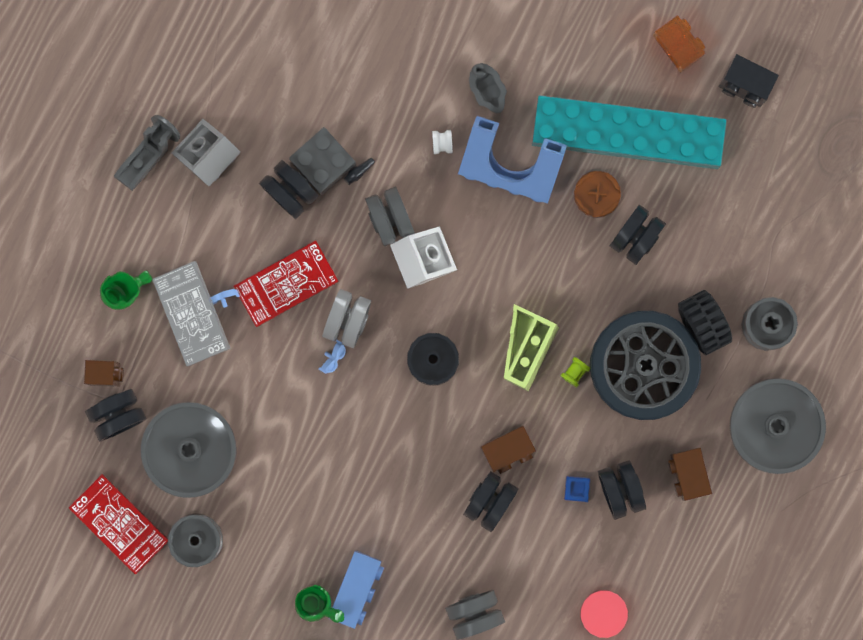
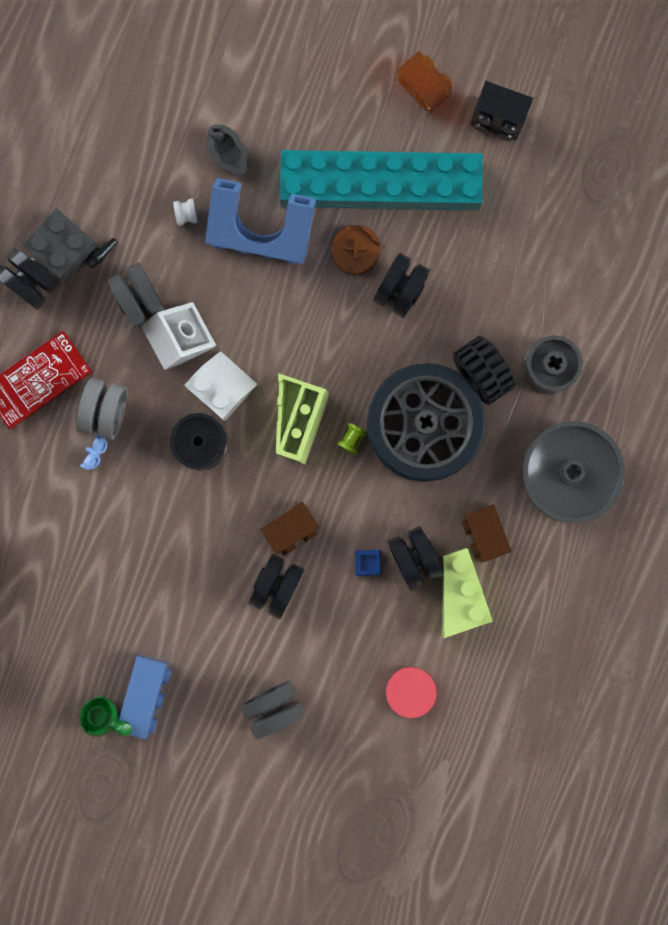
camera: 10 degrees left, 0 degrees up
(458, 308) = (221, 385): none -> white slope
(661, 528) = (462, 595): none -> yellowish green wedge

